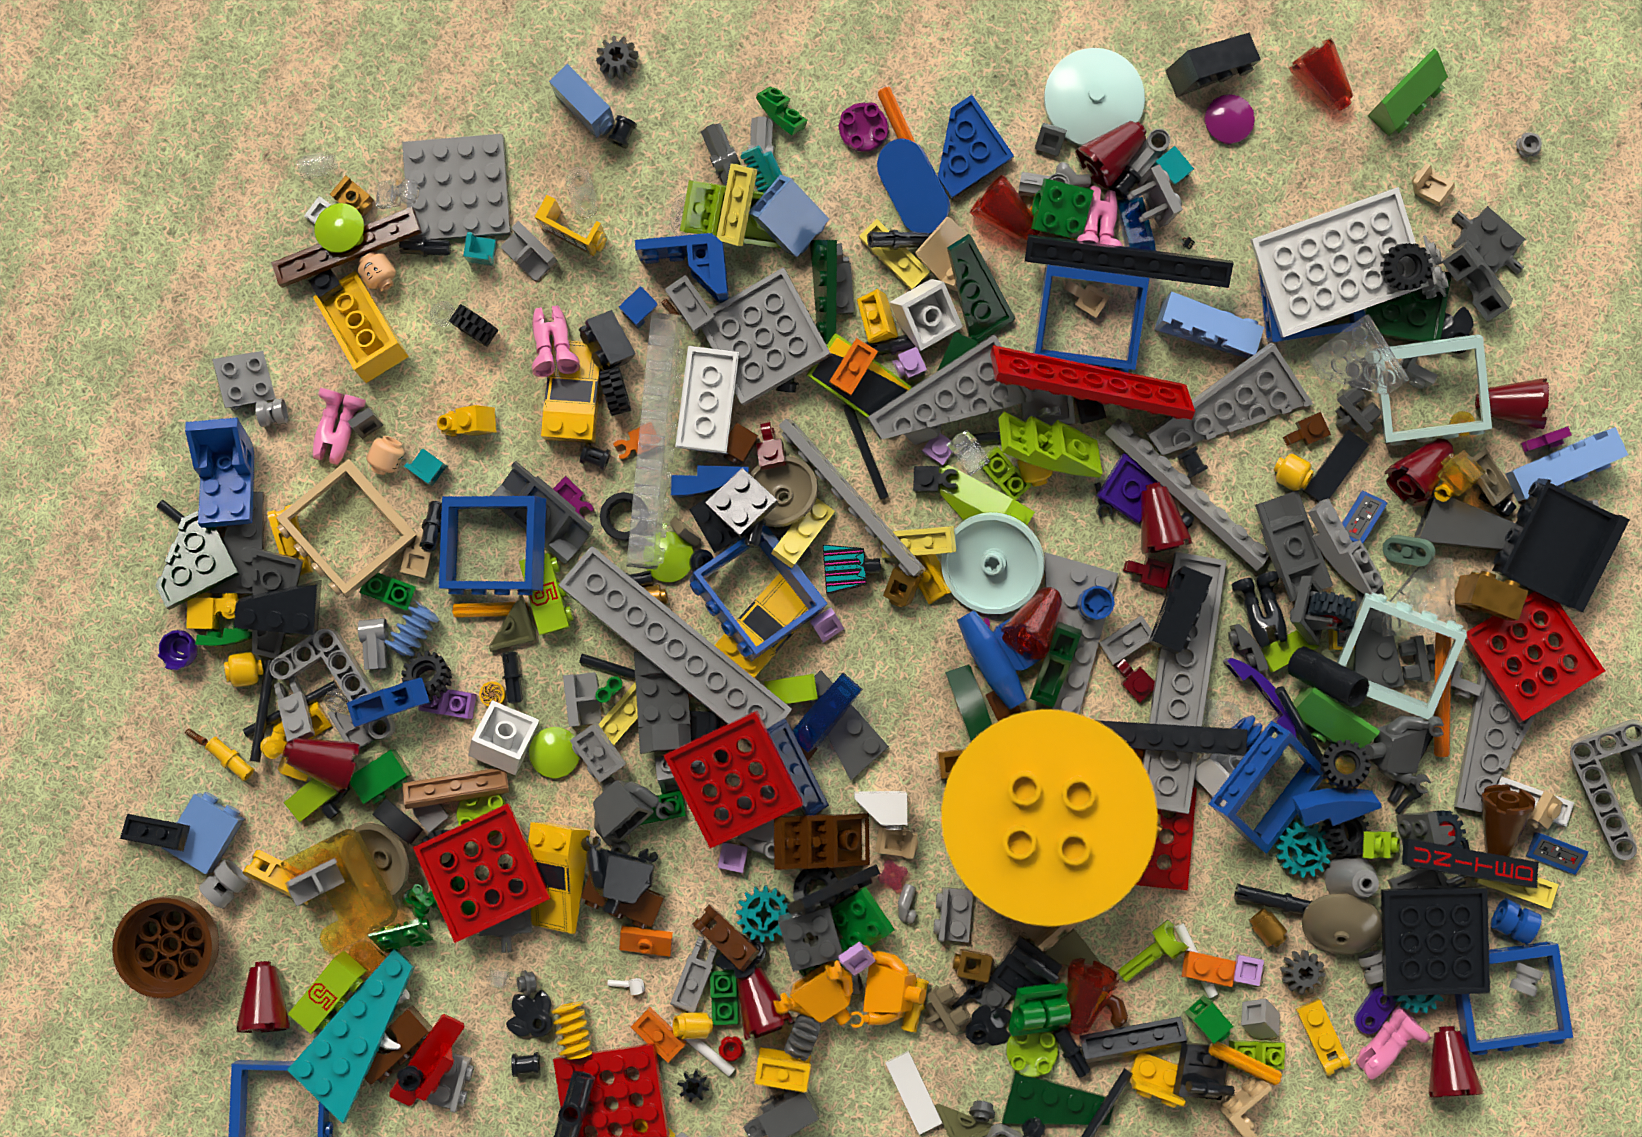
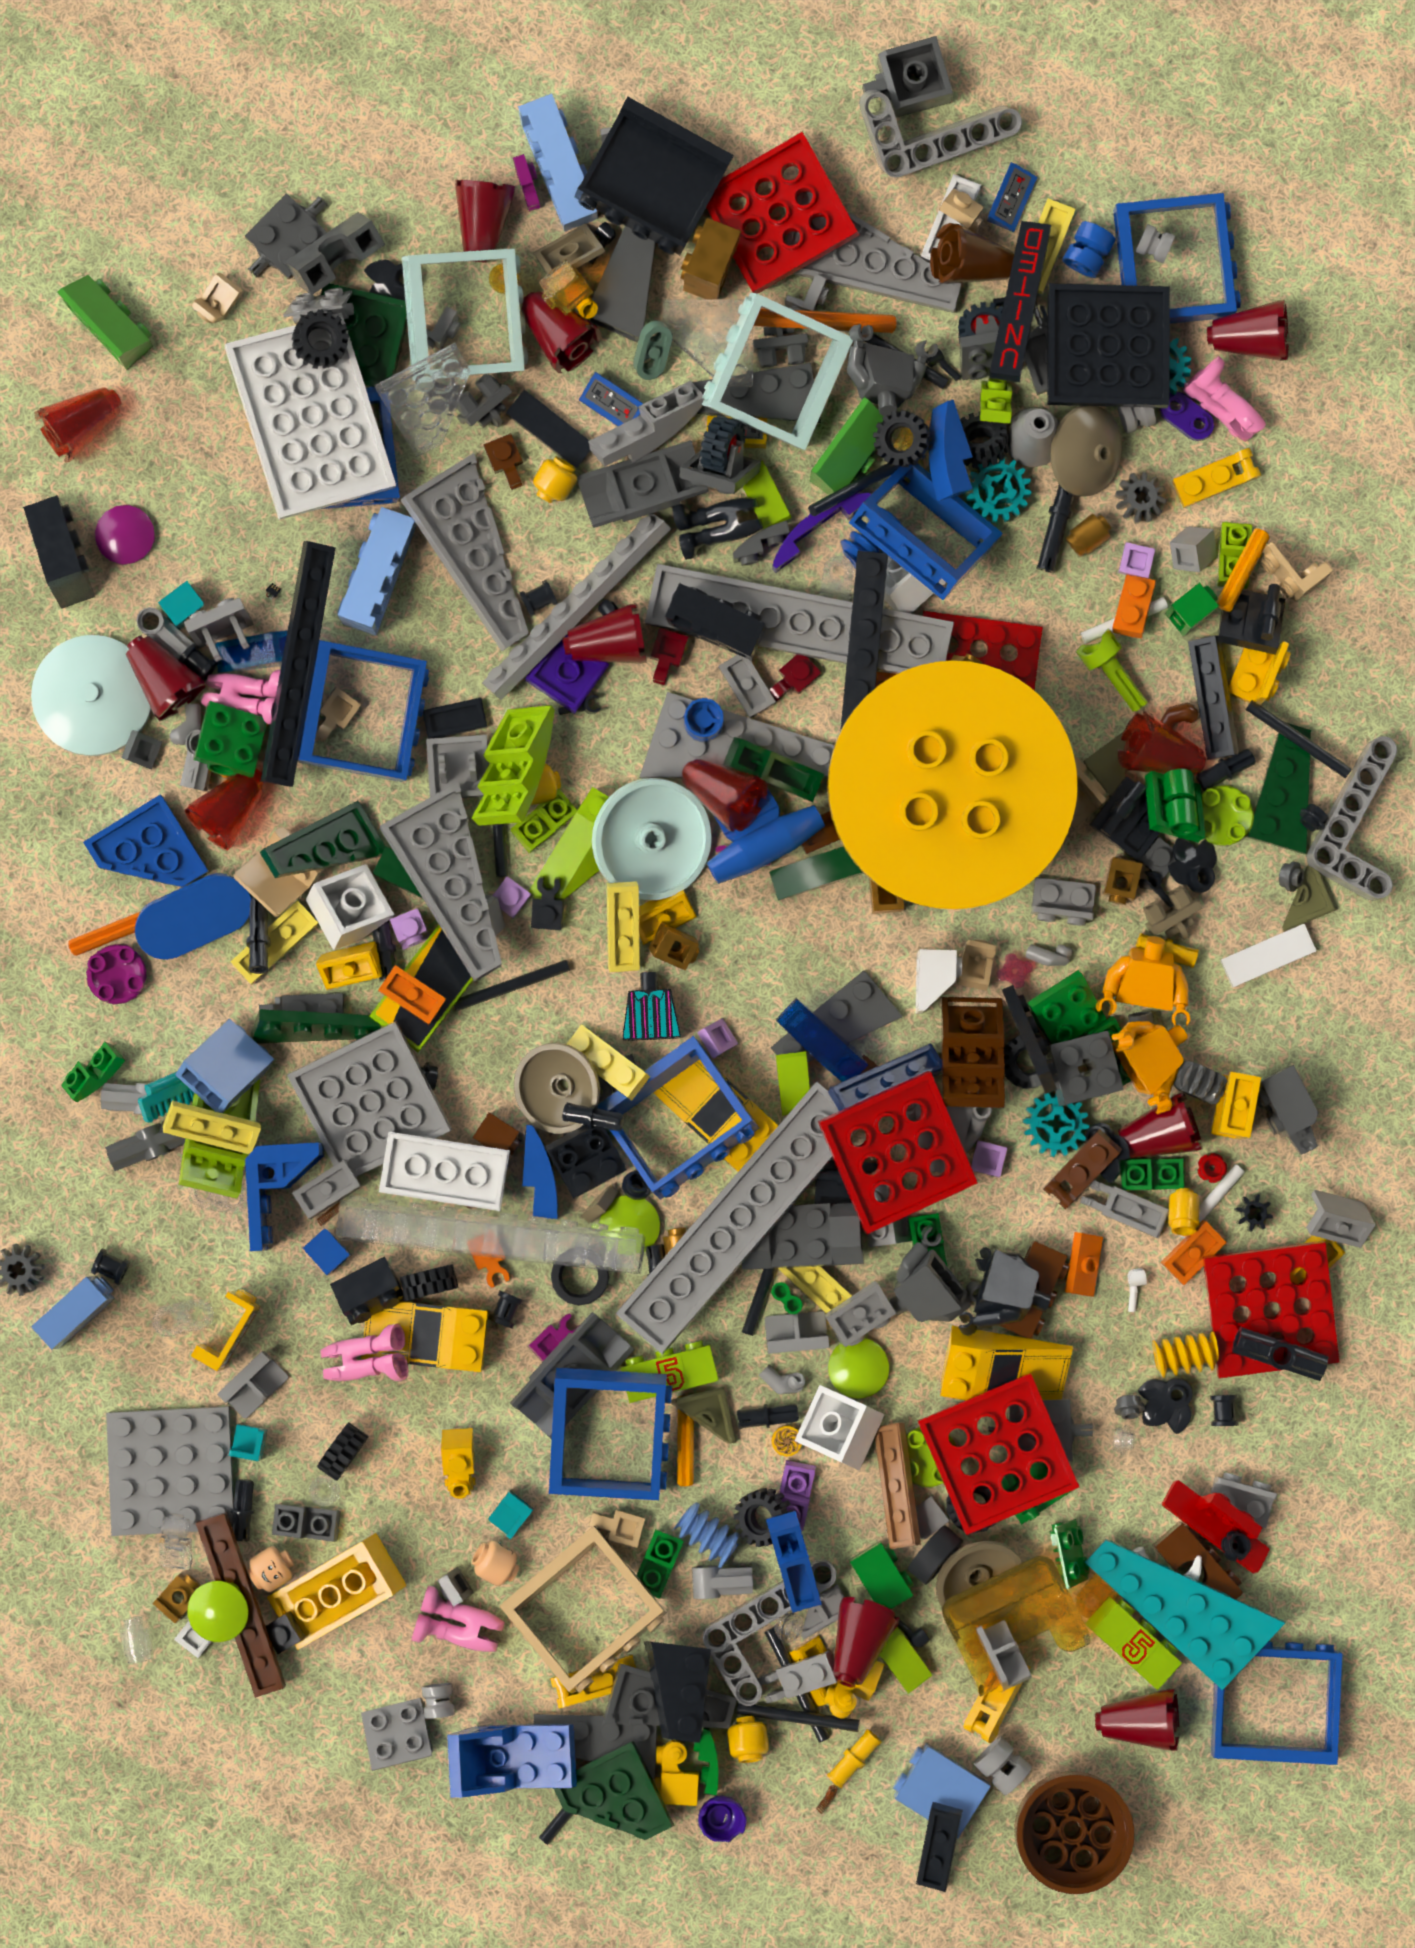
camera: 90 degrees left, 0 degrees up
(416, 299) = (306, 1522): none -> dark grey slope
(418, 901) = (1029, 1533): green piece -> none
(431, 526) = (583, 1507): black pin -> none
(539, 689) = (783, 1383): none -> light grey arm
(741, 503) = (571, 1132): plate -> none
(771, 451) = (507, 1098): plate -> none
(857, 958) = (1110, 1014): lavender plate -> none
(858, 506) = (558, 1011): light grey plate -> none
(968, 452) = (518, 862): clear brick -> none
(1091, 382) = (442, 713): red plate -> none
(1328, 676) = (799, 453): black piece -> none
(1535, 142) = (171, 174): light grey plate -> none

